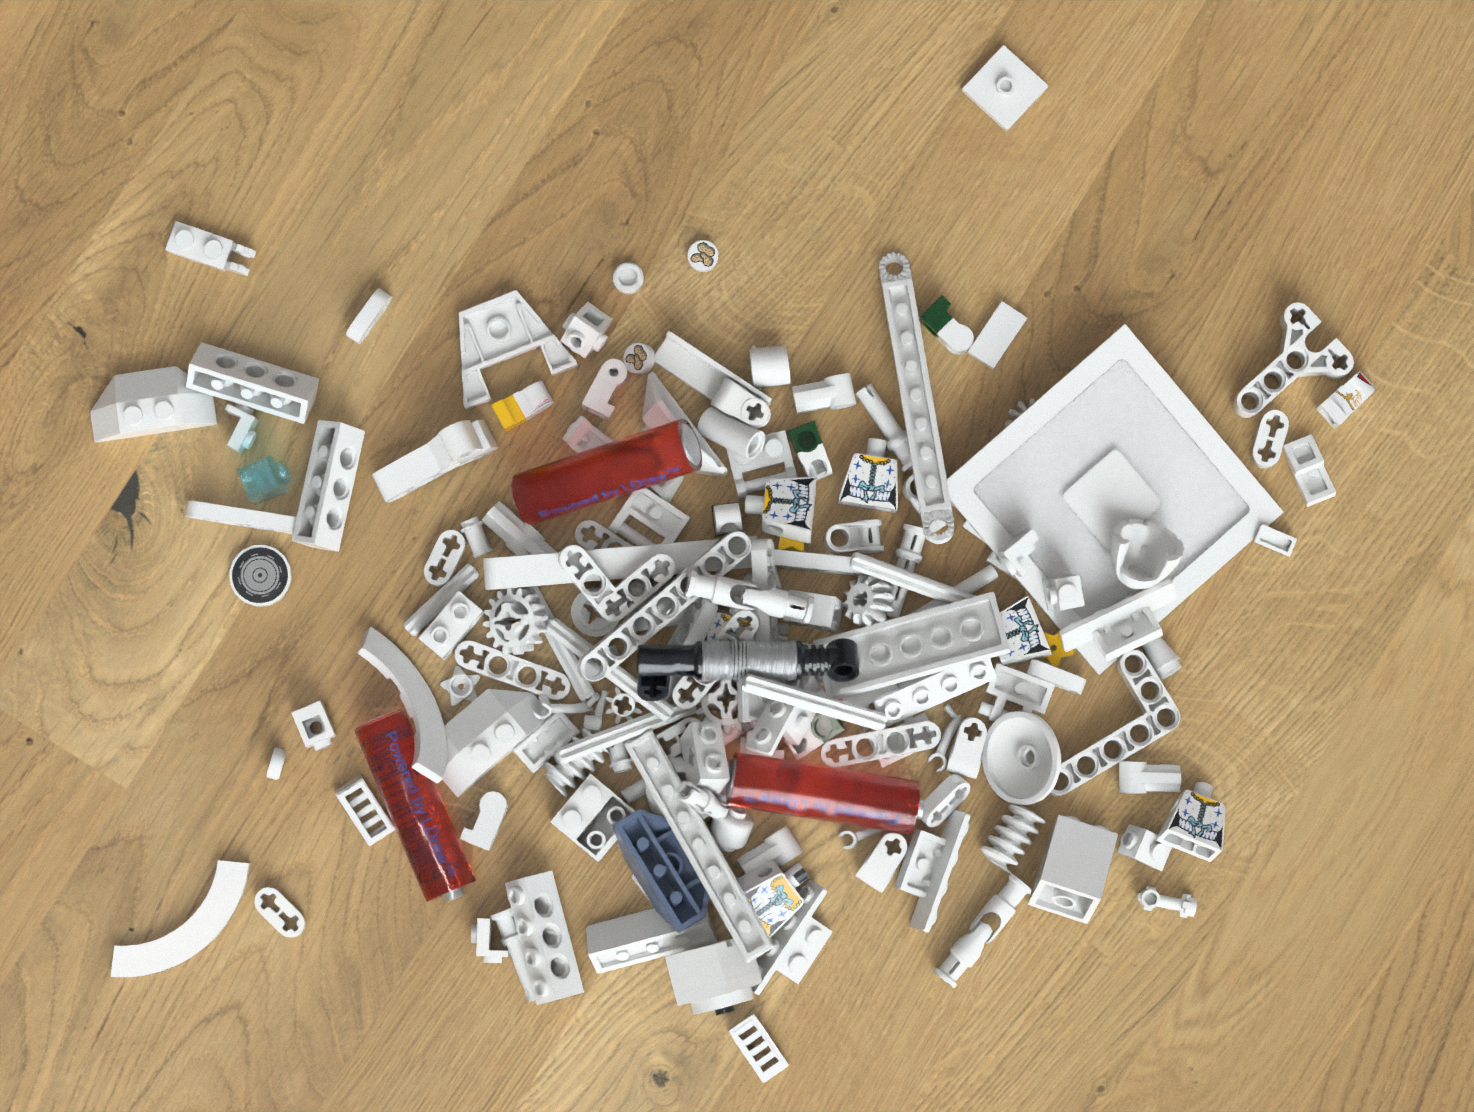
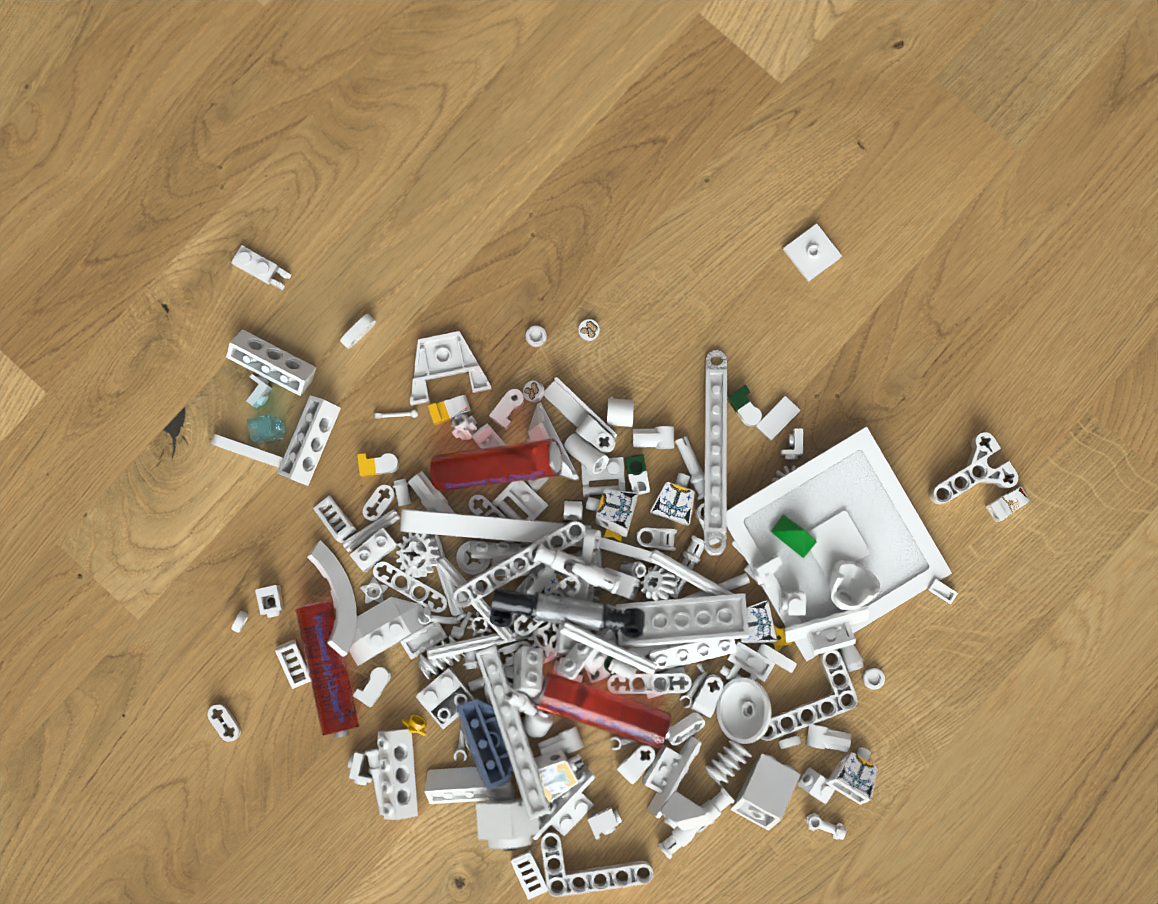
camera: 20 degrees right, 0 degrees up
(149, 405) = (201, 365): white wedge -> none
(193, 934) = (165, 726): white tile -> none
(260, 575) = (253, 492): tile -> none
(403, 611) = (346, 532): none -> white slope
(424, 432) = (414, 413): none -> white hinge
(433, 505) = (376, 466): none -> leg
(448, 450) = (390, 432): white beam -> none
(548, 426) = (464, 427): none -> white gear
(557, 864) = (415, 724): none -> yellow plate
(586, 330) = (496, 367): white brick -> none
(607, 590) = (482, 546): white beam -> none
(627, 883) = (461, 745): none -> white hand
(832, 586) = (635, 569): none -> white pin
(839, 730) = (622, 669): none -> white pin
(842, 1032) = (587, 874): none -> white beam
(852, 952) = (604, 821): none -> white brick
(964, 918) = (684, 813): none -> white slope
(1027, 363) = (796, 443): none -> white bracket
(1049, 498) = (793, 536): none -> green slope
(1095, 792) = (788, 742): none -> white tile
(1198, 682) = (873, 678): none -> white tile
(1262, 437) = (955, 523): white beam -> none
(1309, 470) = (974, 547): white slope -> none

